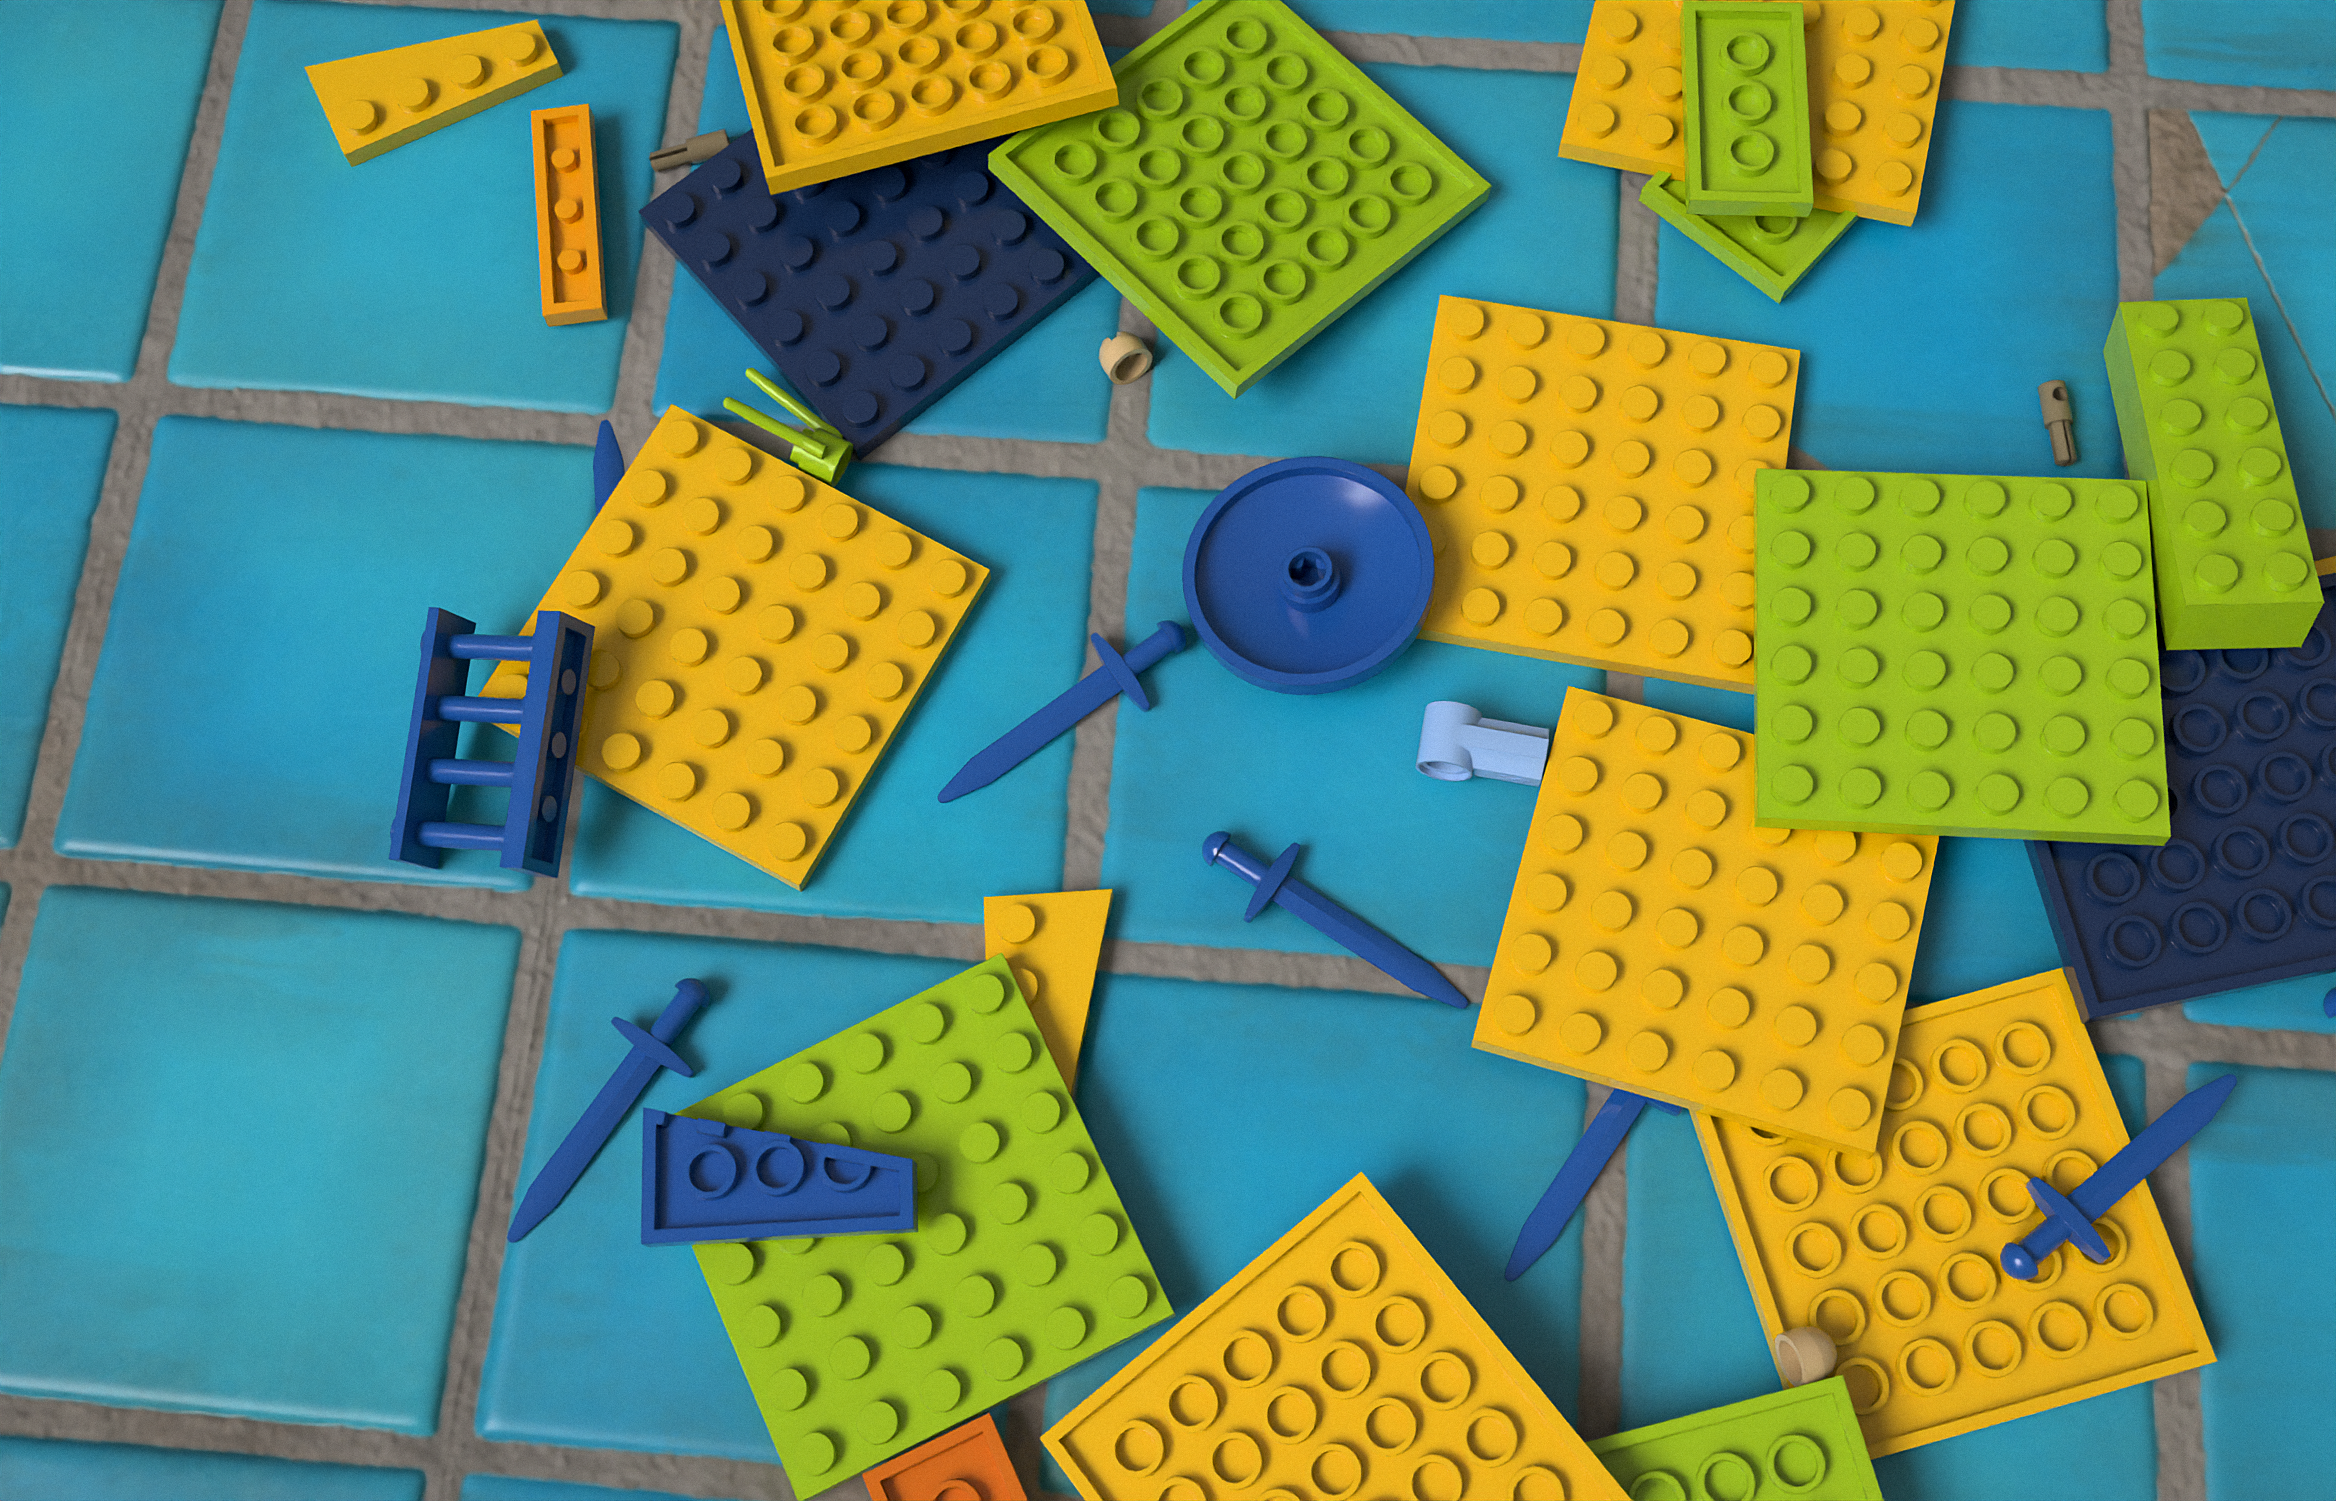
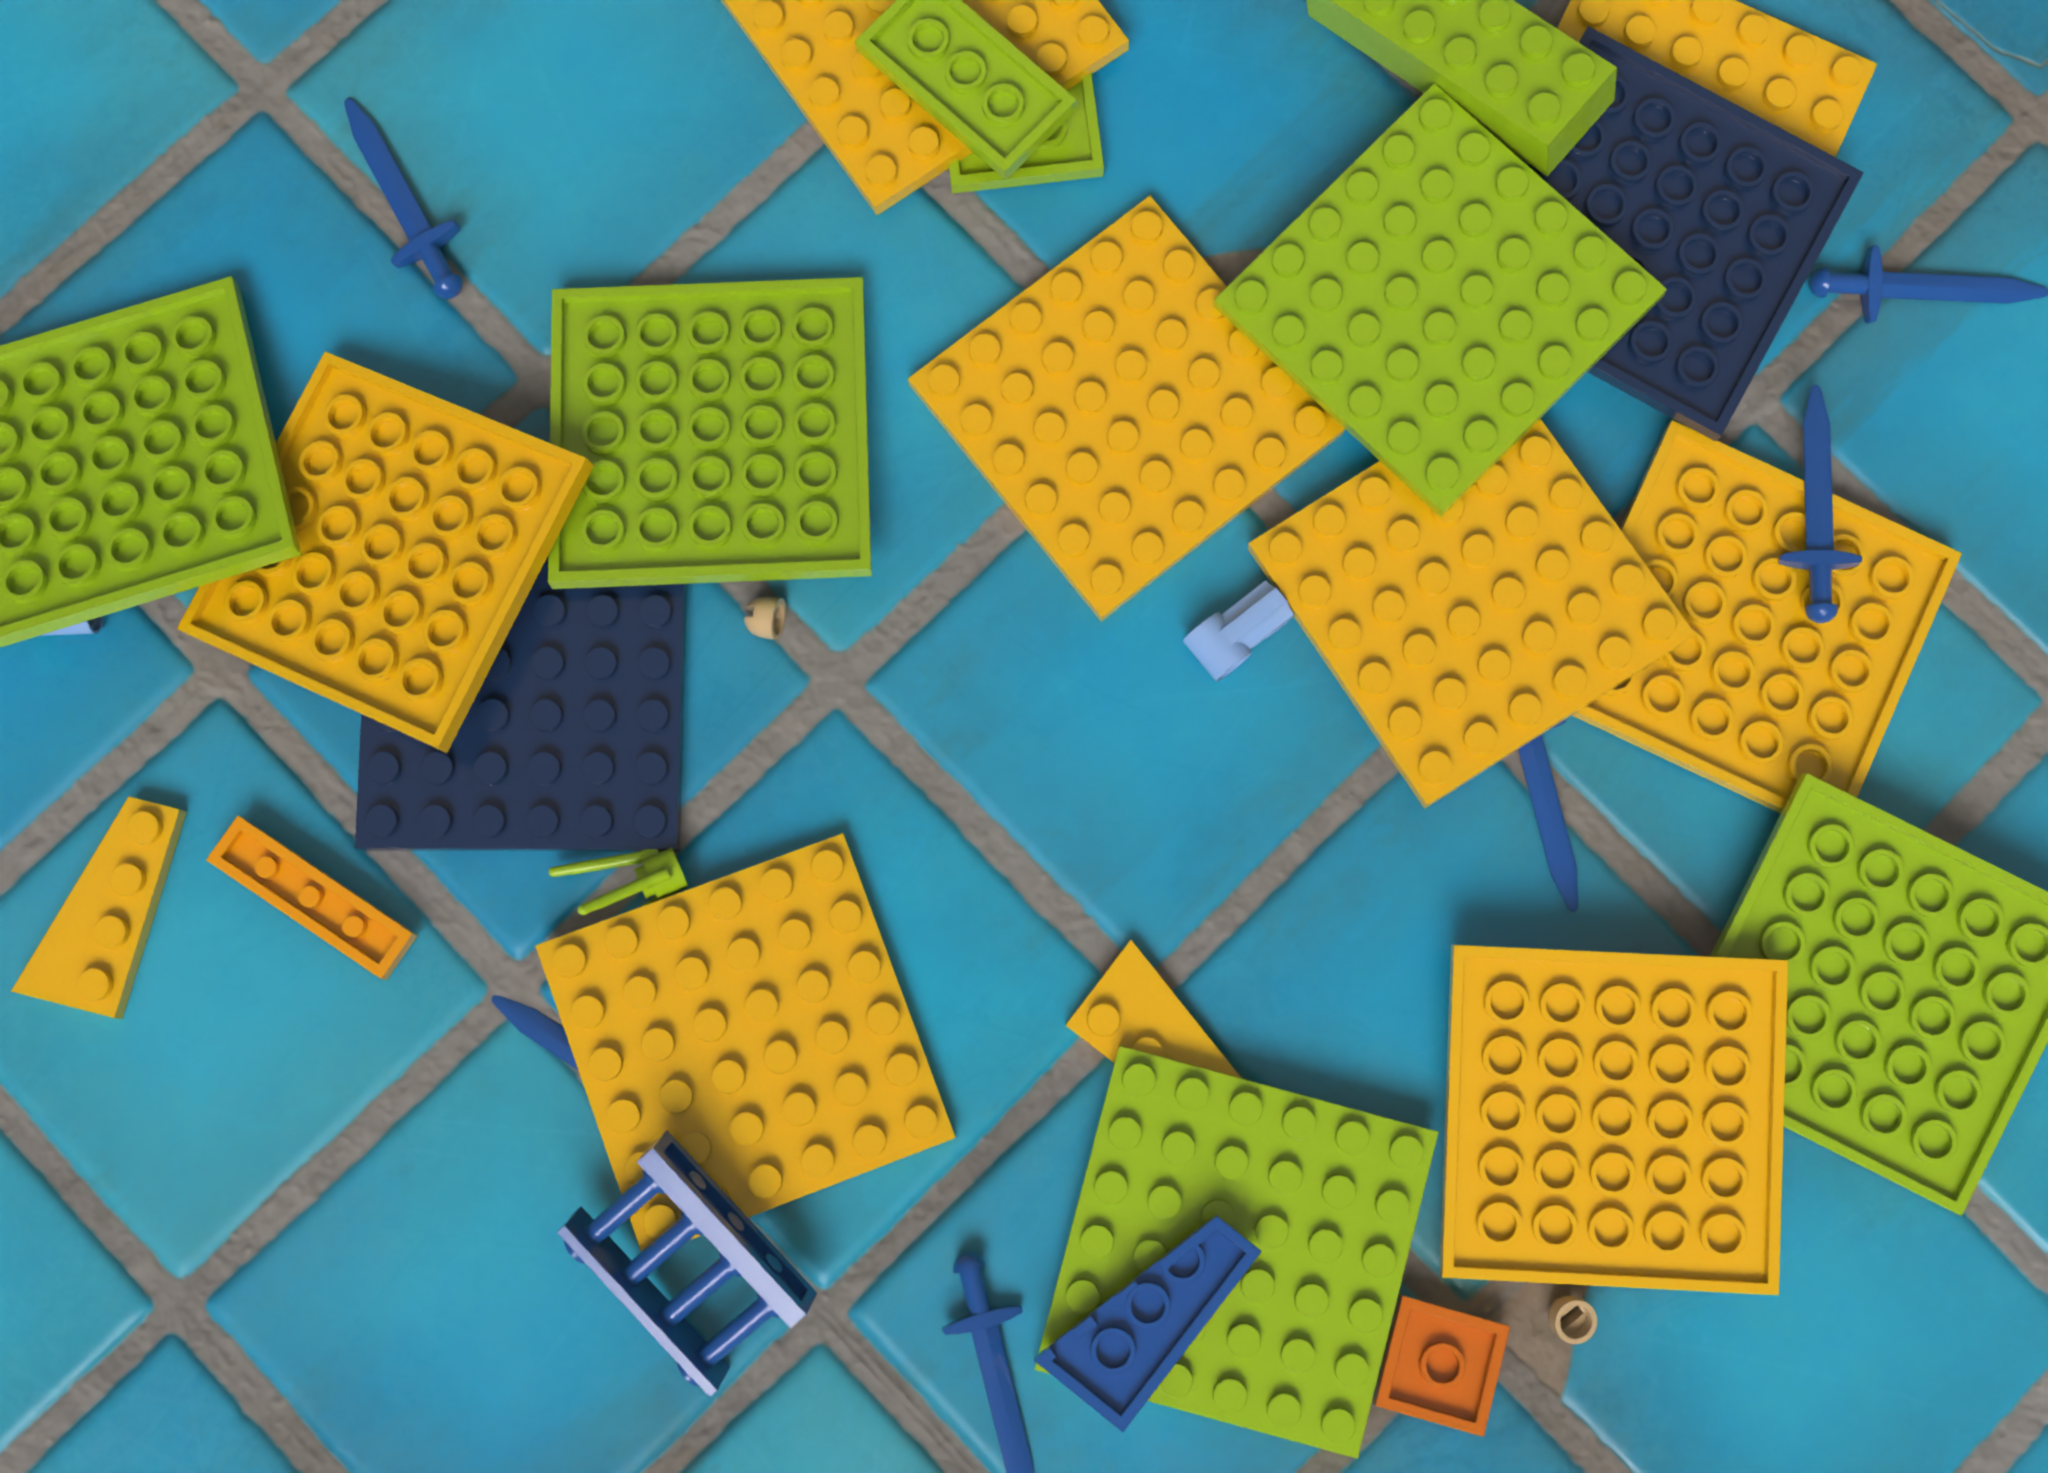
camera: 55 degrees left, 10 degrees up
(695, 151) = (342, 765): dark tan pin -> none
(1114, 676) = (982, 862): blue sword -> none
(1277, 886) = (1215, 834): blue sword -> none
(1309, 575) = (1035, 636): blue dish -> none
(1805, 1355) = (1774, 782): tan hinge -> none
(2058, 420) = (1332, 87): dark tan pin -> none

